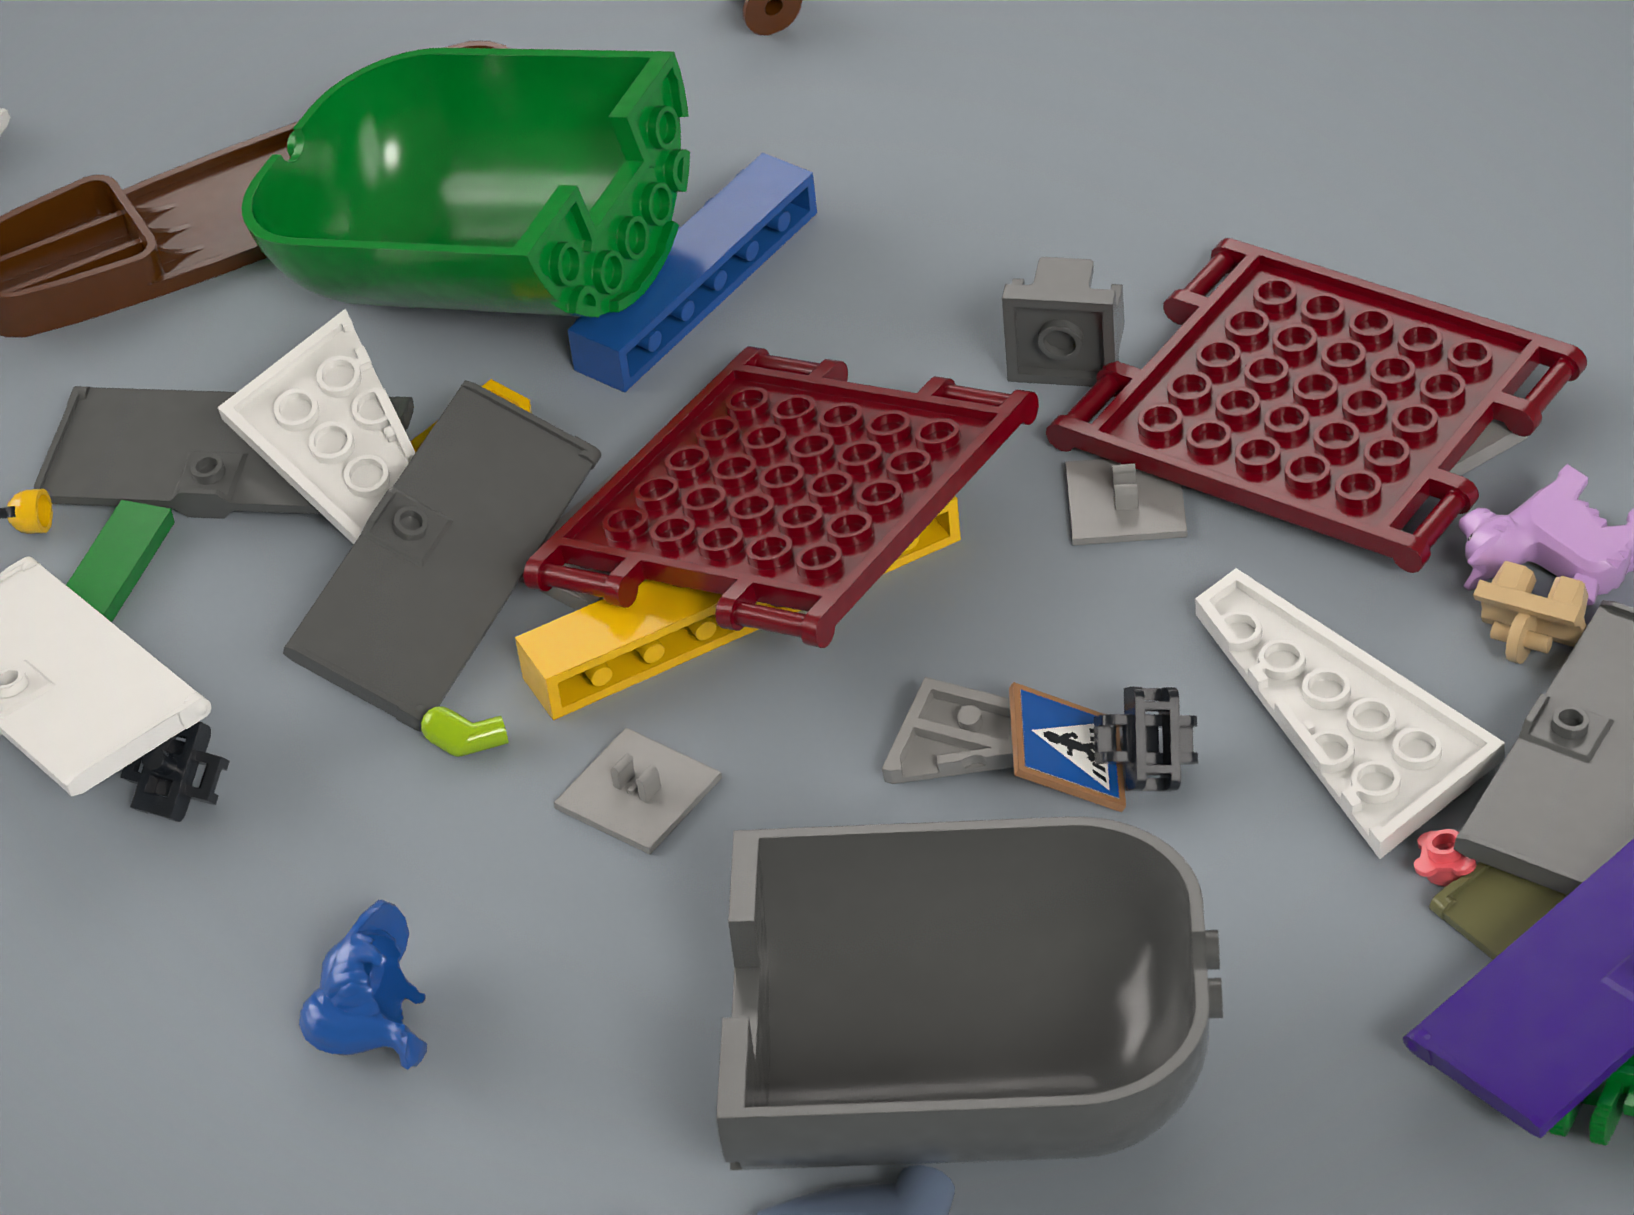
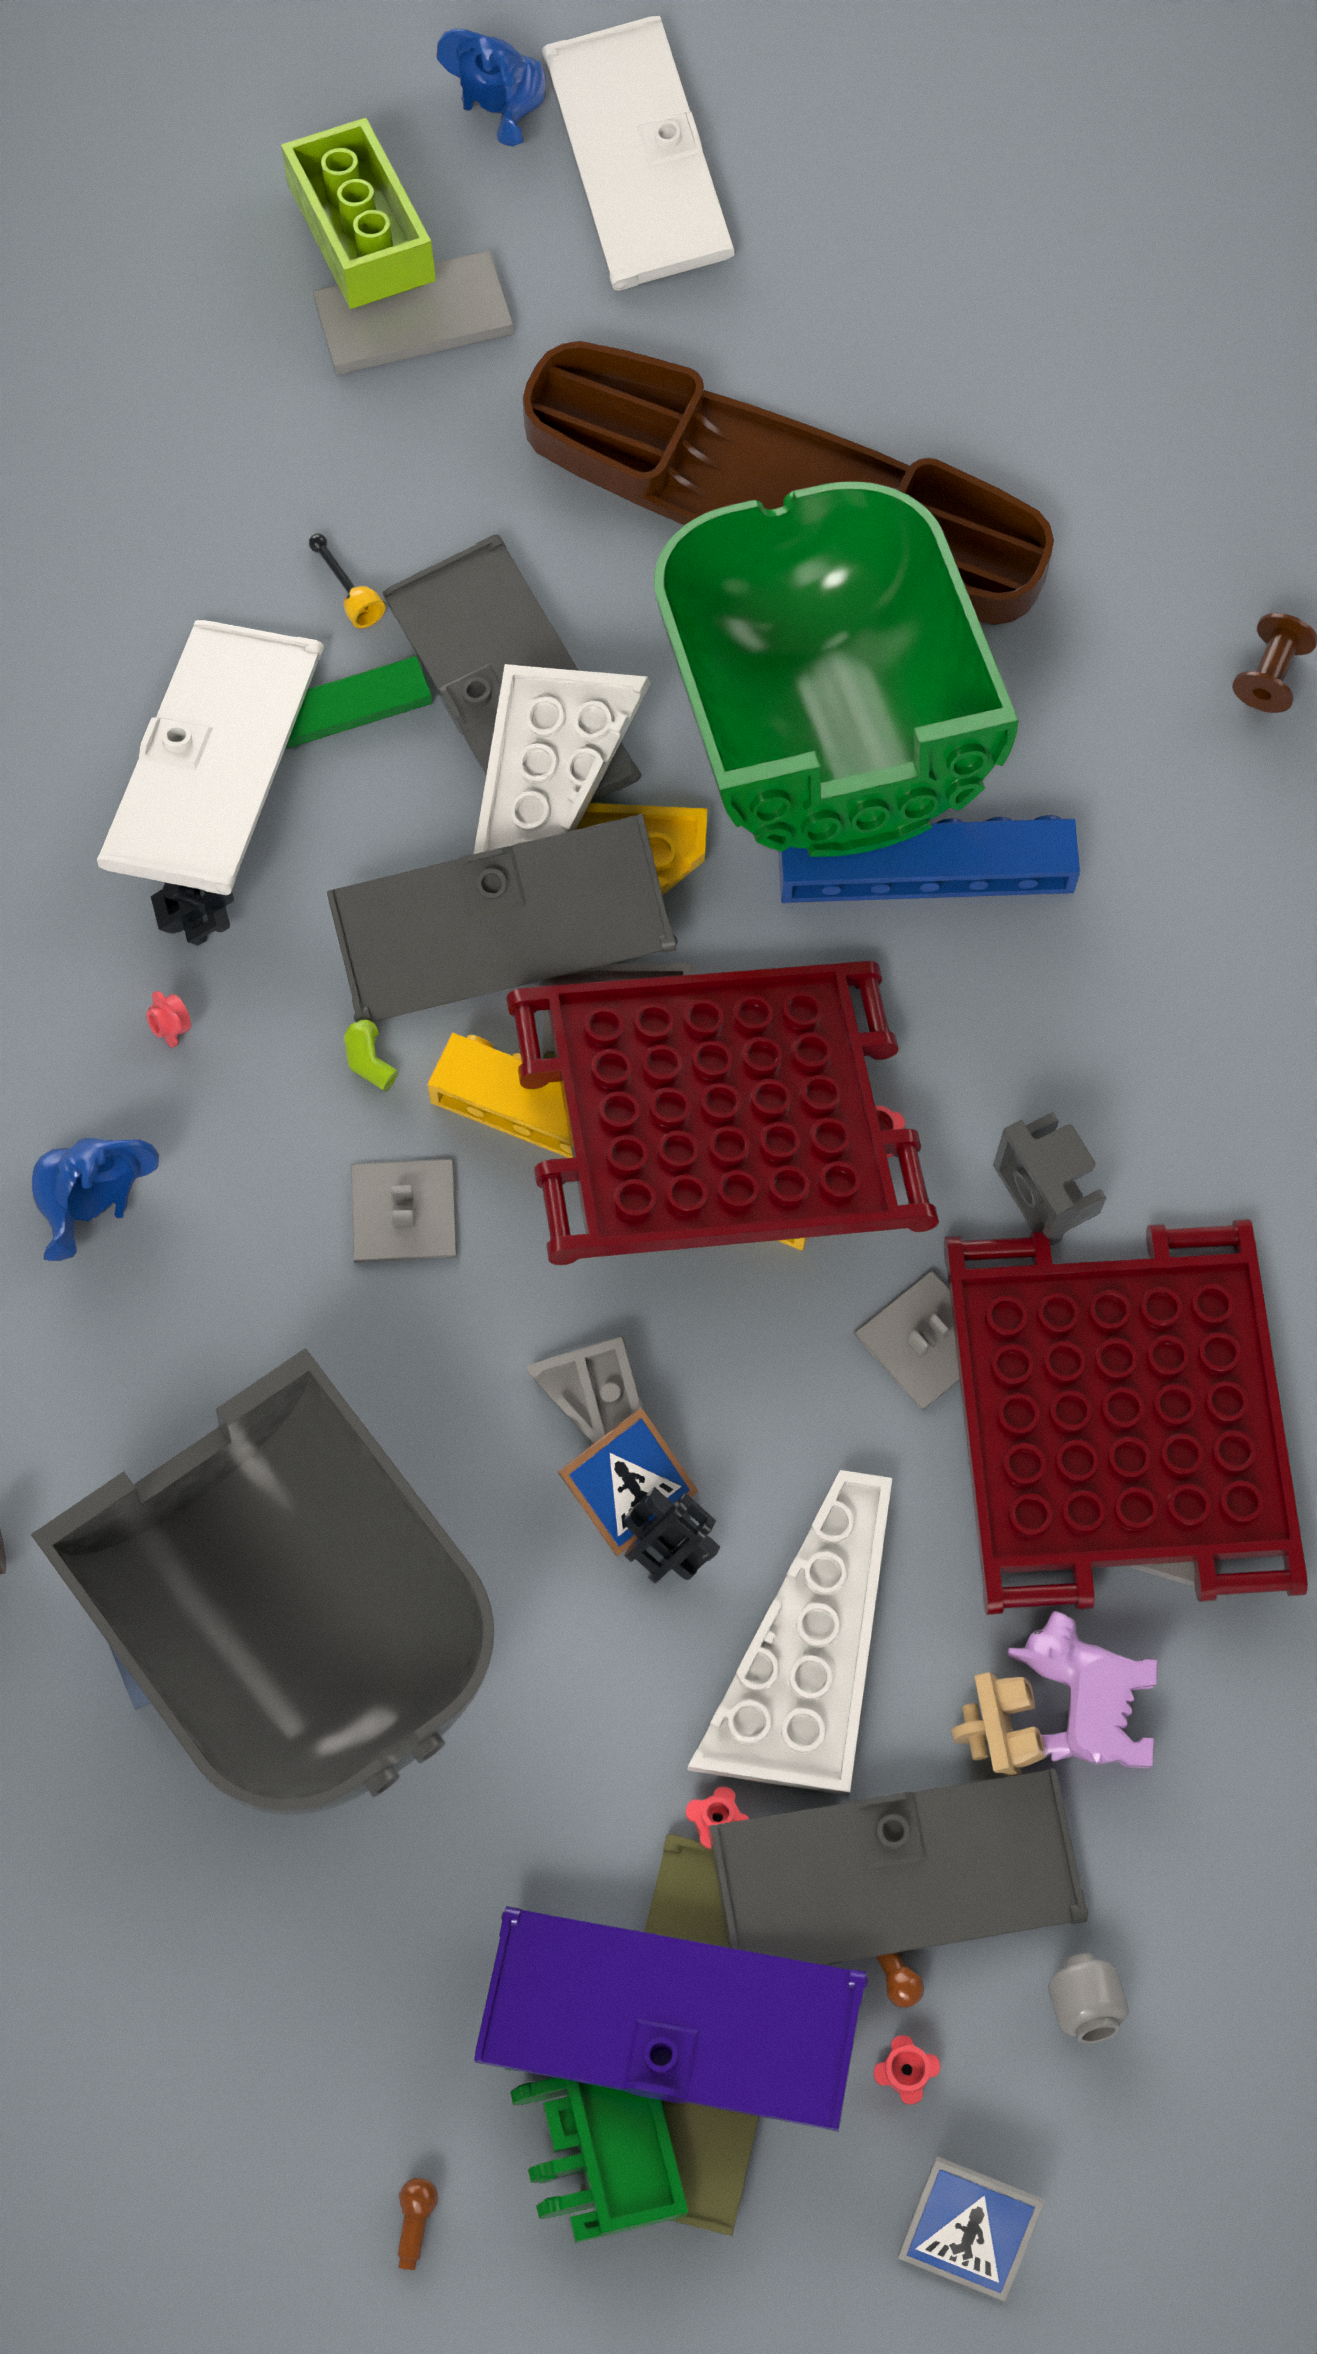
camera: 45 degrees right, 25 degrees up
(267, 839) = (168, 1017): none -> coral plate

